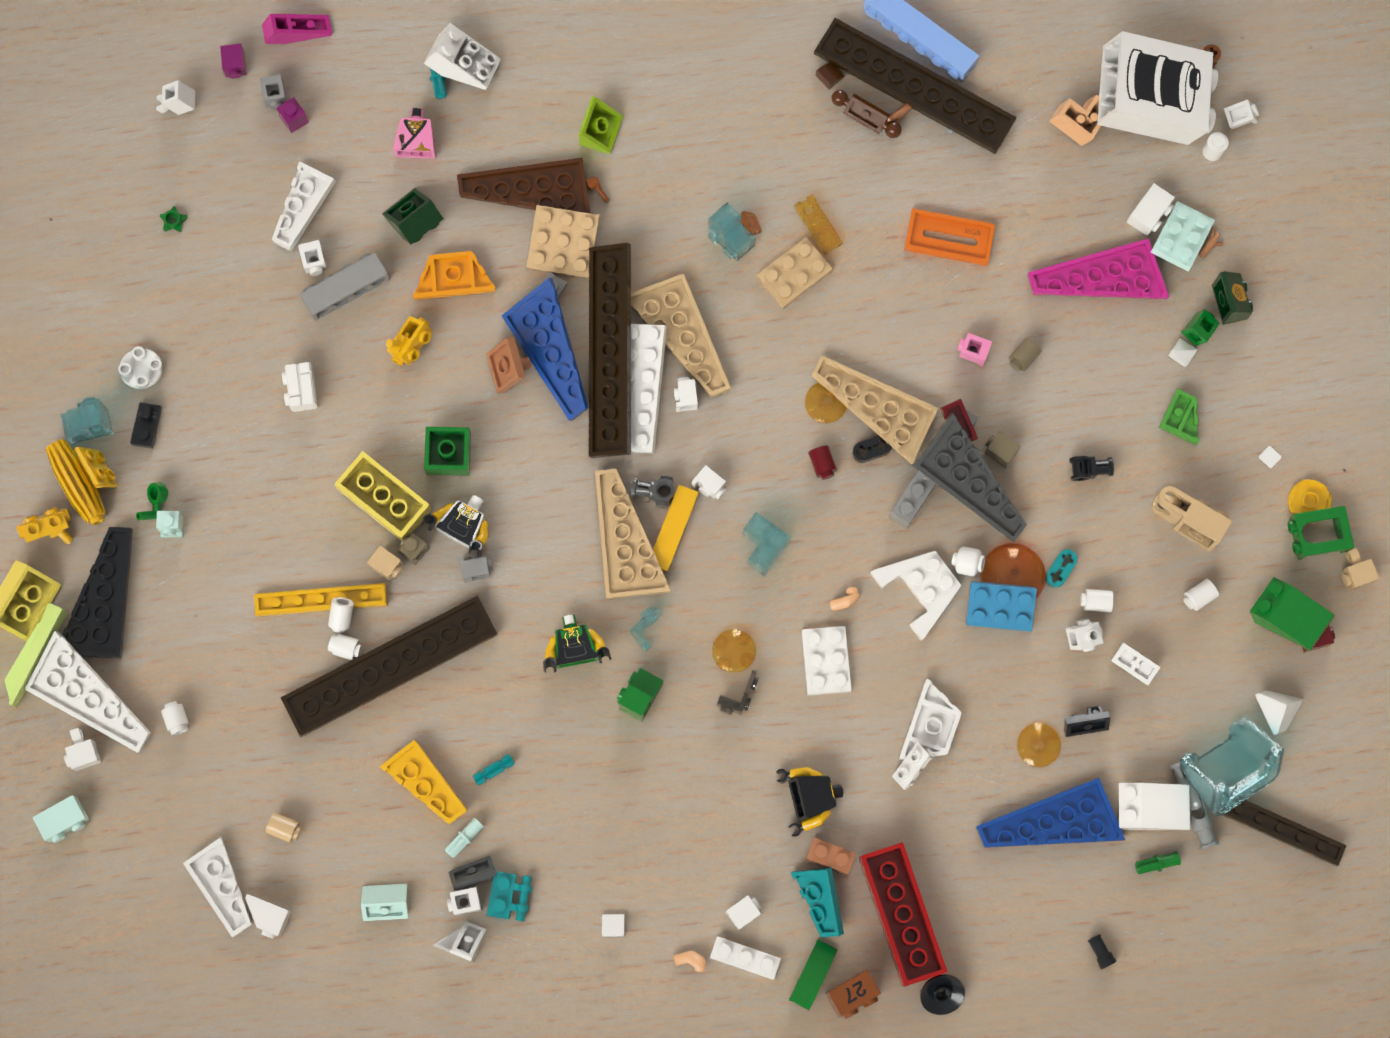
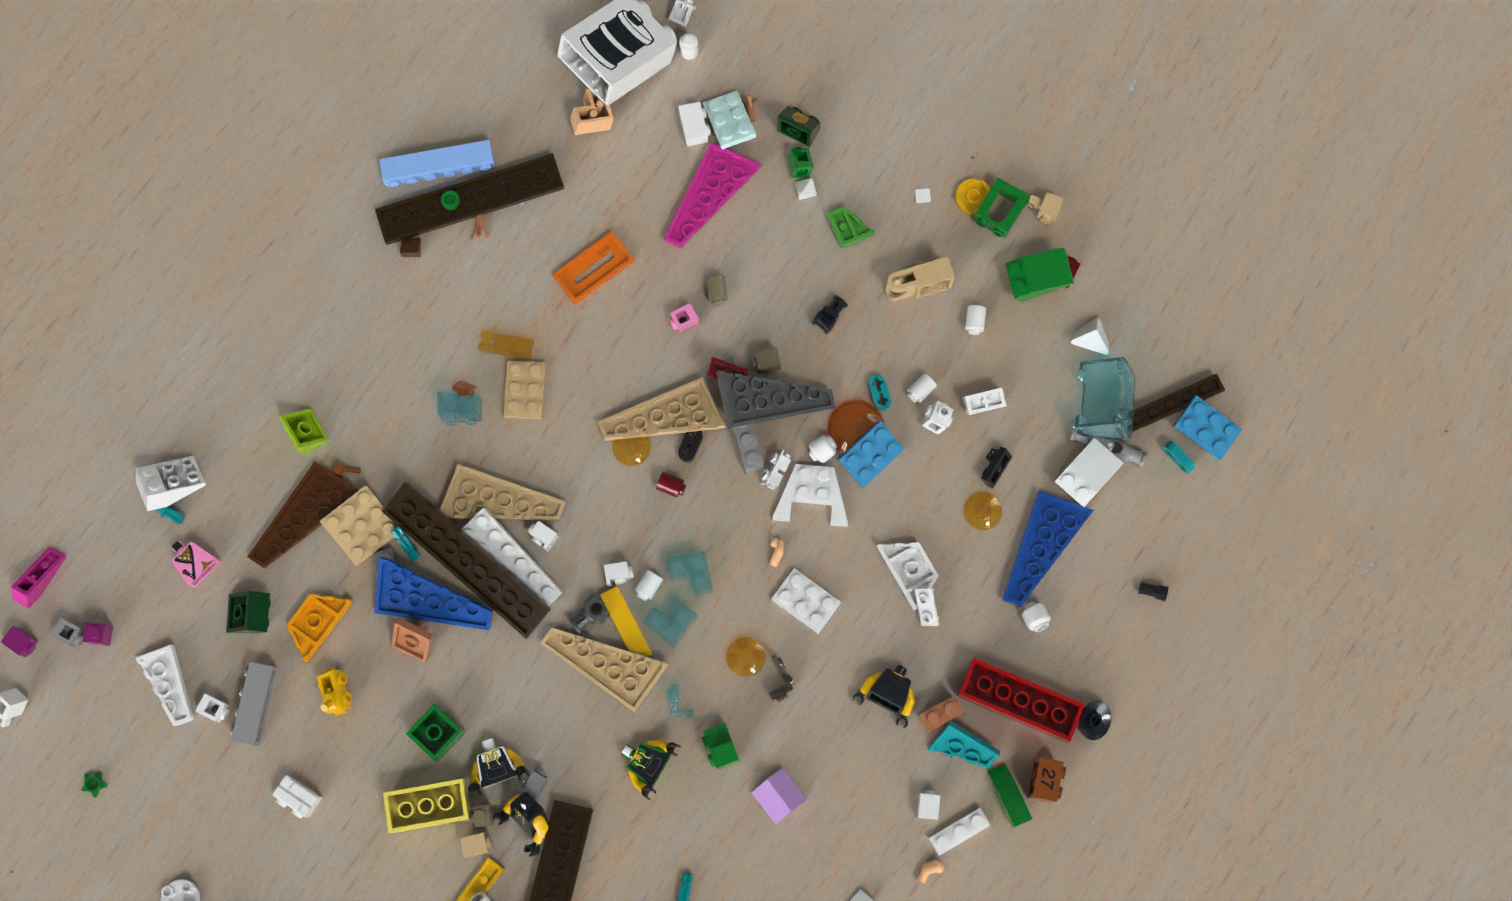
camera: 45 degrees left, 0 degrees up
(446, 586) = (529, 817): none -> torso
(580, 290) = (405, 543): none -> teal axle
(642, 778) = (779, 795): none -> lavender slope
(703, 568) = (671, 628): none -> clear light blue brick
(721, 517) = (648, 585): none -> white brick
(866, 114) = (460, 247): reddish brown plate -> none
(898, 70) = (450, 200): none -> green tile
(906, 538) = (777, 461): none -> white hinge
(987, 868) = (1036, 617): none -> white head
(1158, 862) = (1126, 502): green axle -> none
(1240, 875) = (1179, 457): none -> teal beam
(1289, 878) = (1207, 427): none -> dark azure plate

